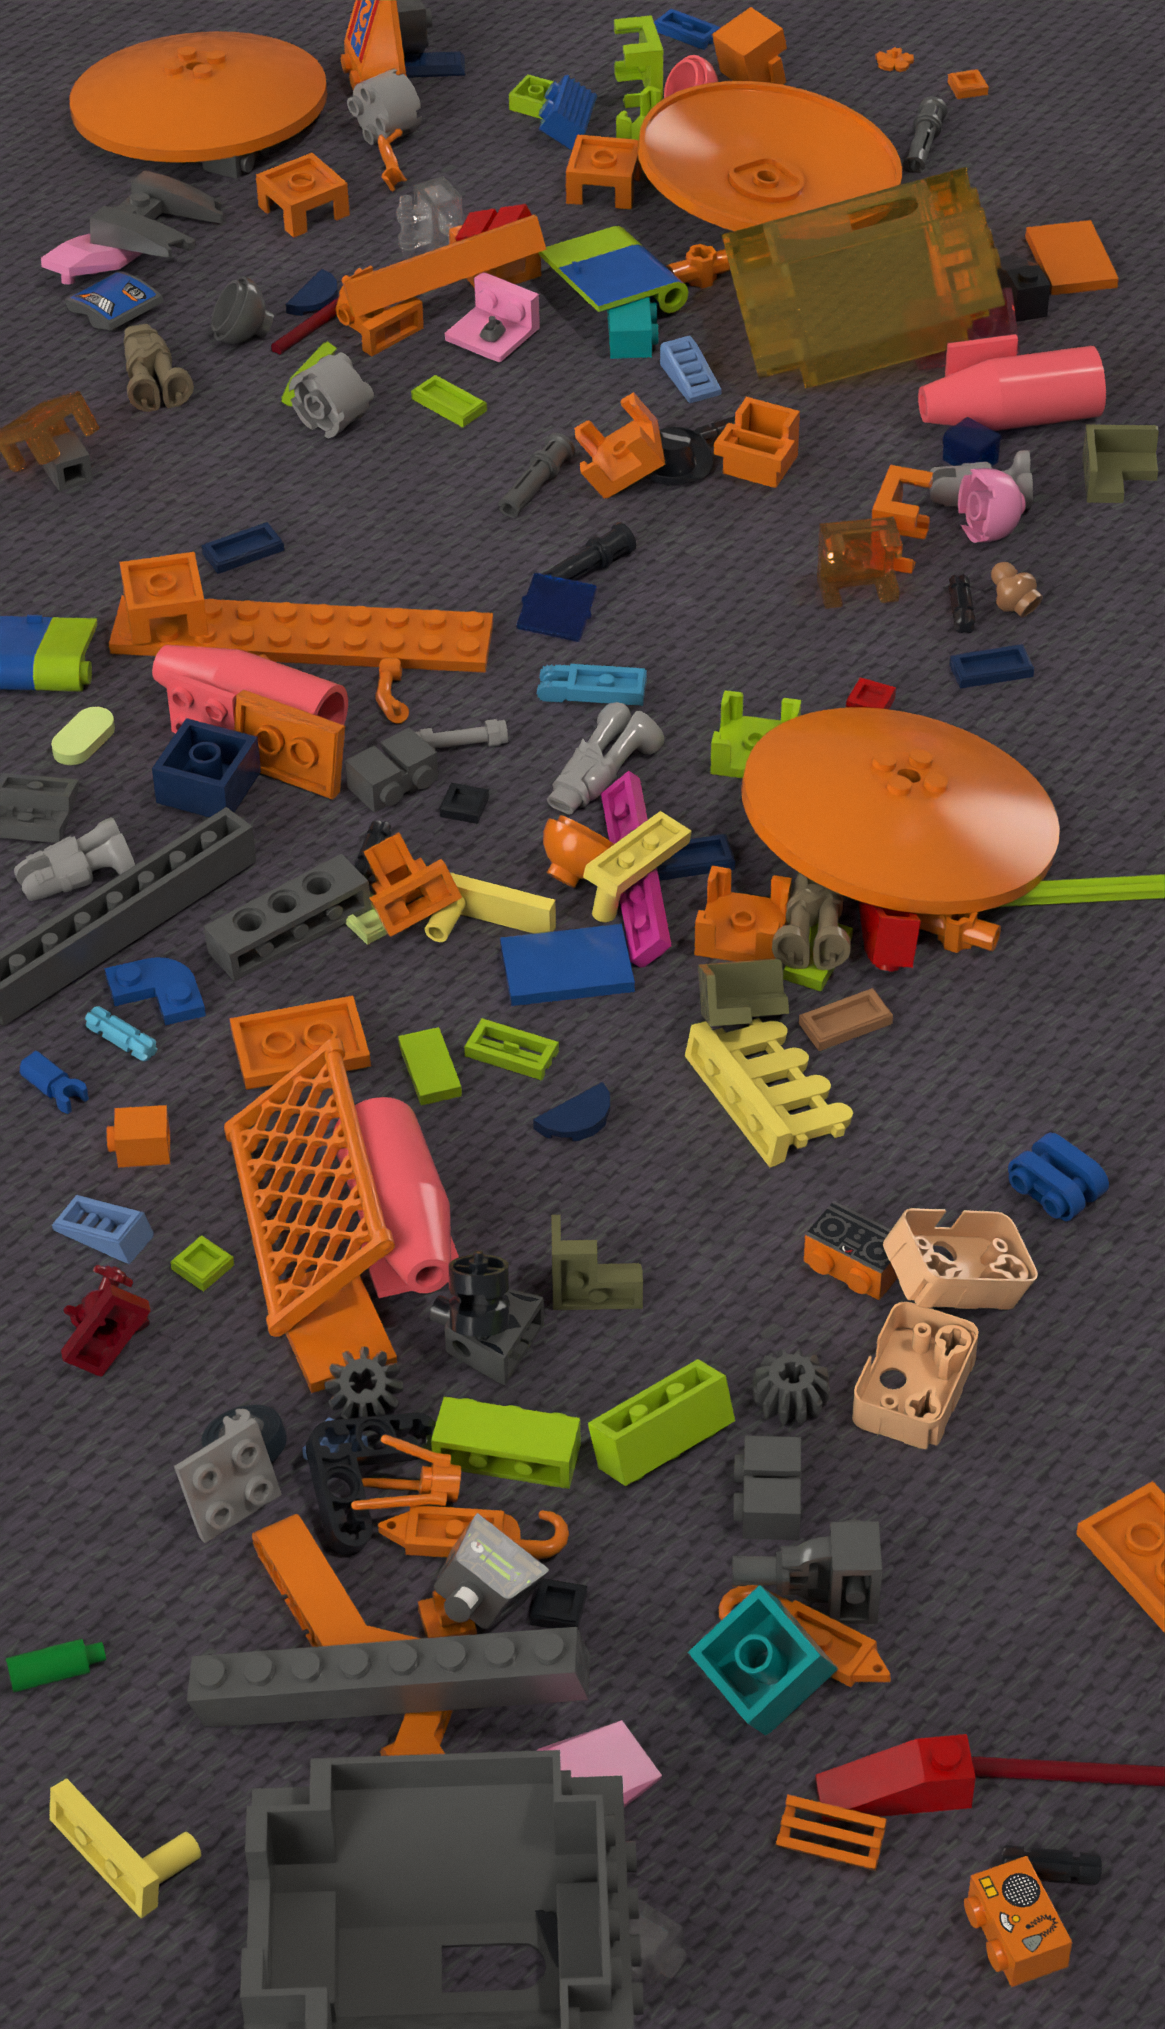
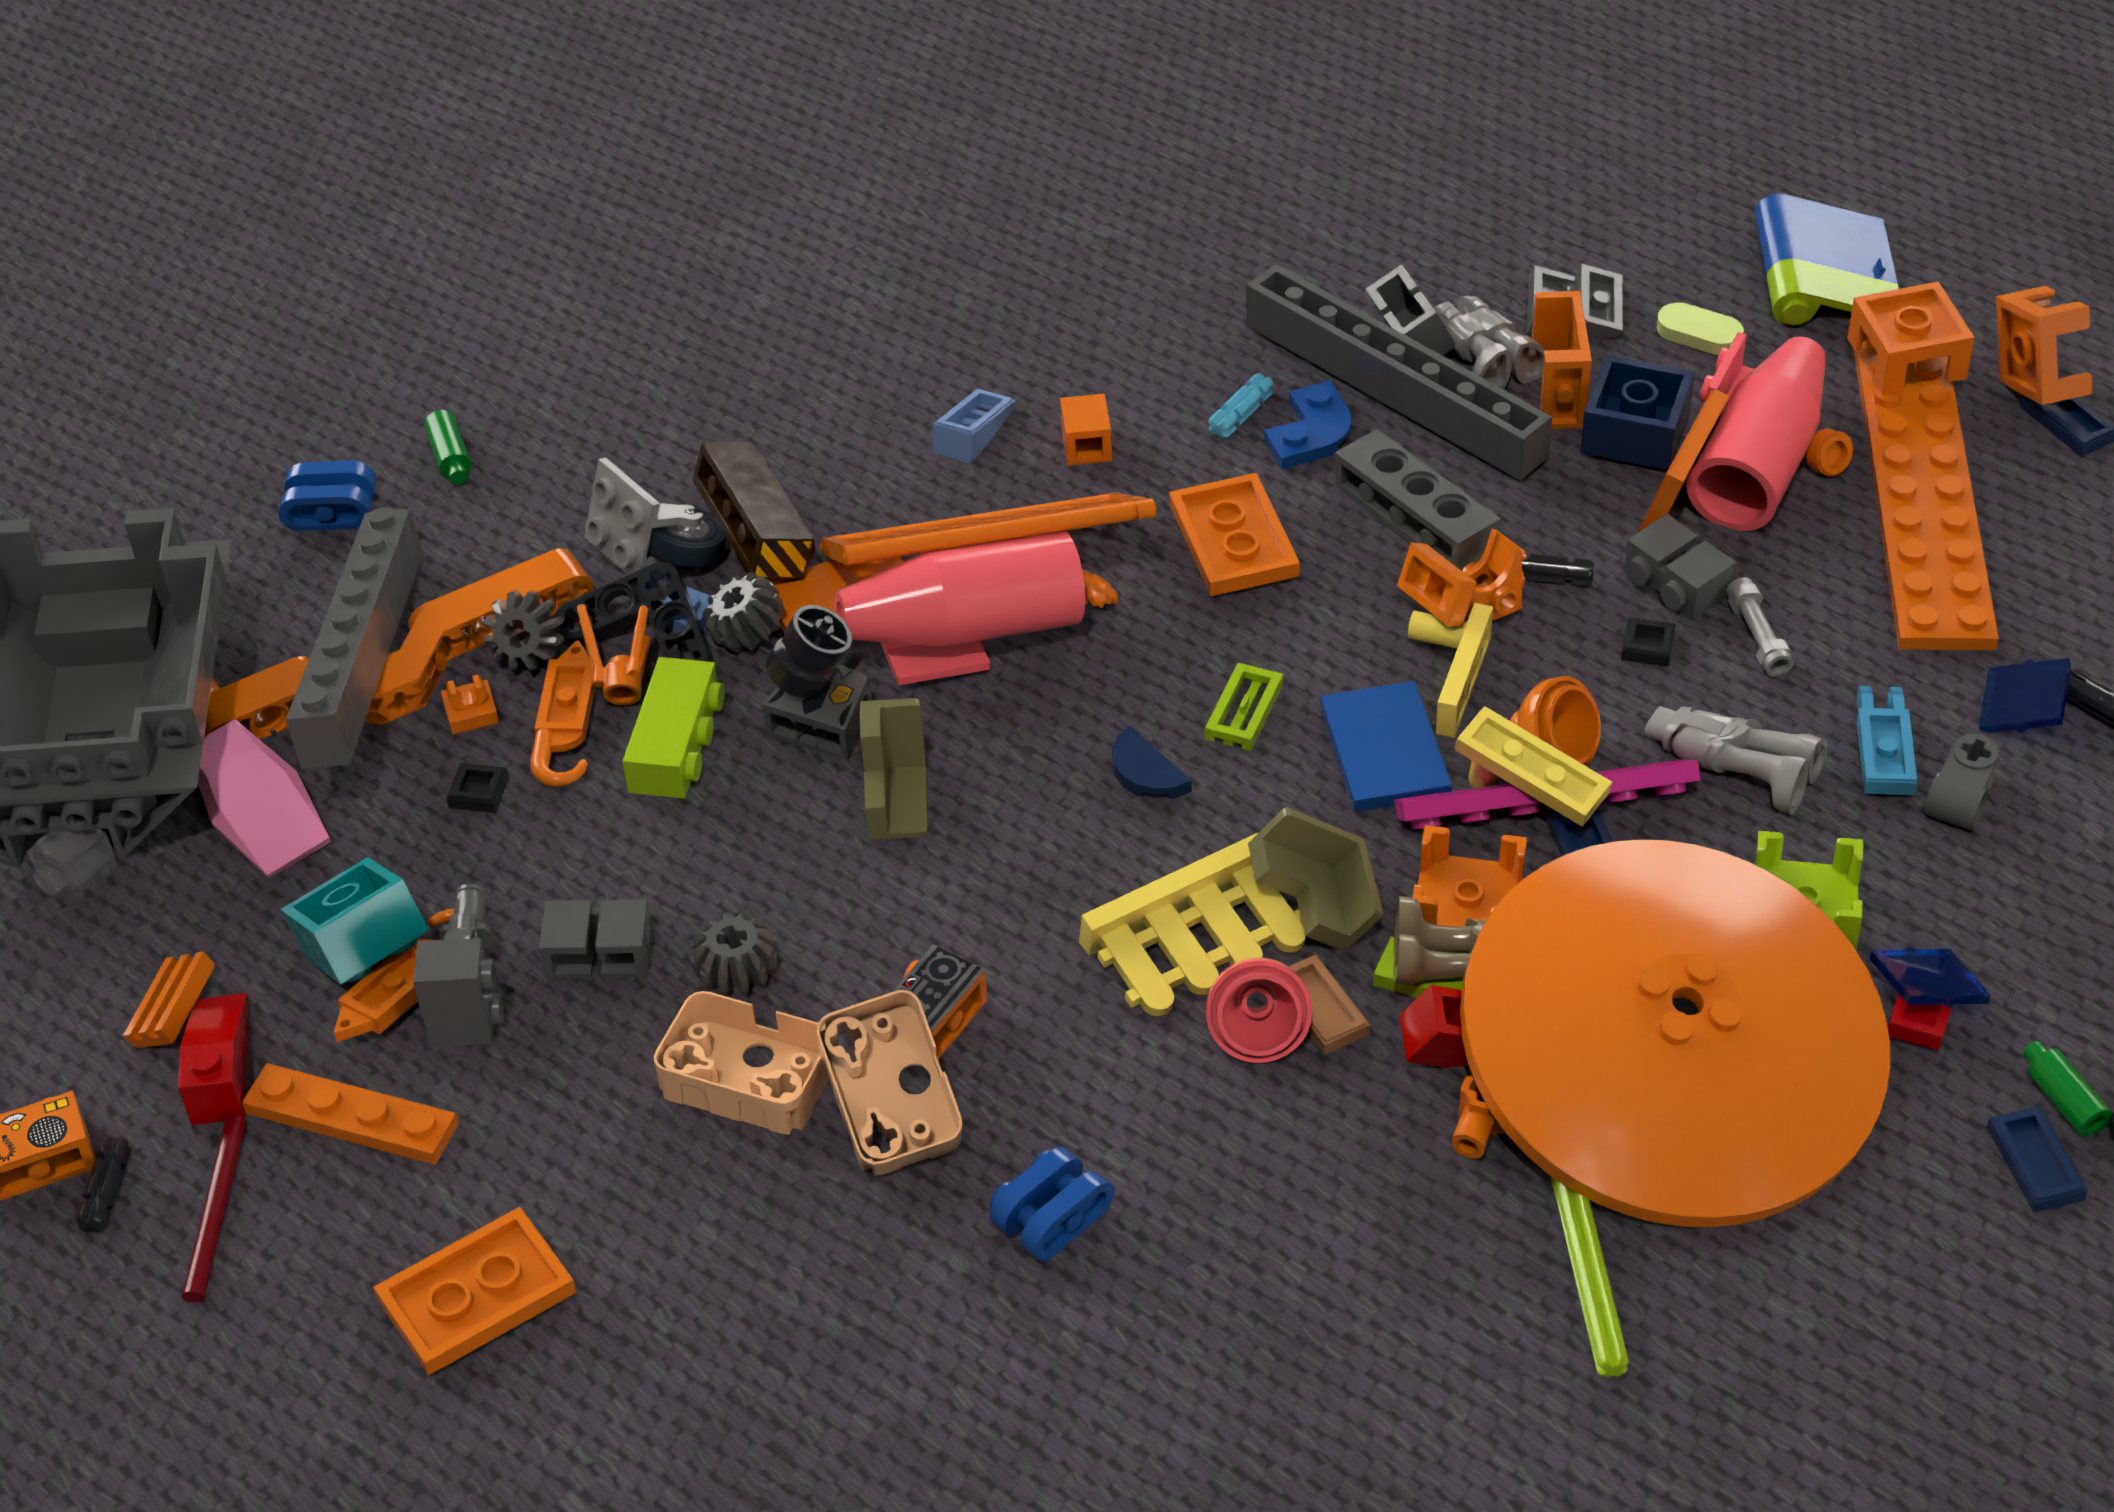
camera: 90 degrees right, 0 degrees up
(30, 909) = (1409, 311): none -> dark grey piece
(52, 1080) = (1167, 364): blue bar -> none
(99, 1748) = (327, 495): none -> blue brick
(104, 1322) = (812, 416): dark red piece -> none
(113, 1858) = (218, 510): light yellow piece -> none
(135, 795) = (1567, 360): none -> orange panel
(195, 526) = (2029, 344): none -> orange panel
(202, 1263) = (927, 497): lime tile -> none
(226, 1377) = (753, 510): none -> dark brown brick
(373, 1557) = (536, 622): none -> dark grey gear
(394, 710) = (1866, 556): orange piece -> none
(430, 1066) = (1213, 642): lime tile -> none
(486, 1575) = (483, 704): dark grey torso -> none
(650, 648) = (1964, 782): none -> dark grey piece
(661, 1422) = (679, 838): lime brick -> none
(838, 686) = (1929, 976): none -> clear blue piece
(869, 1039) = (1261, 1032): none -> coral piece
(935, 641) = (2067, 1089): none -> green cylinder
(965, 1665) = (350, 1113): none -> orange plate

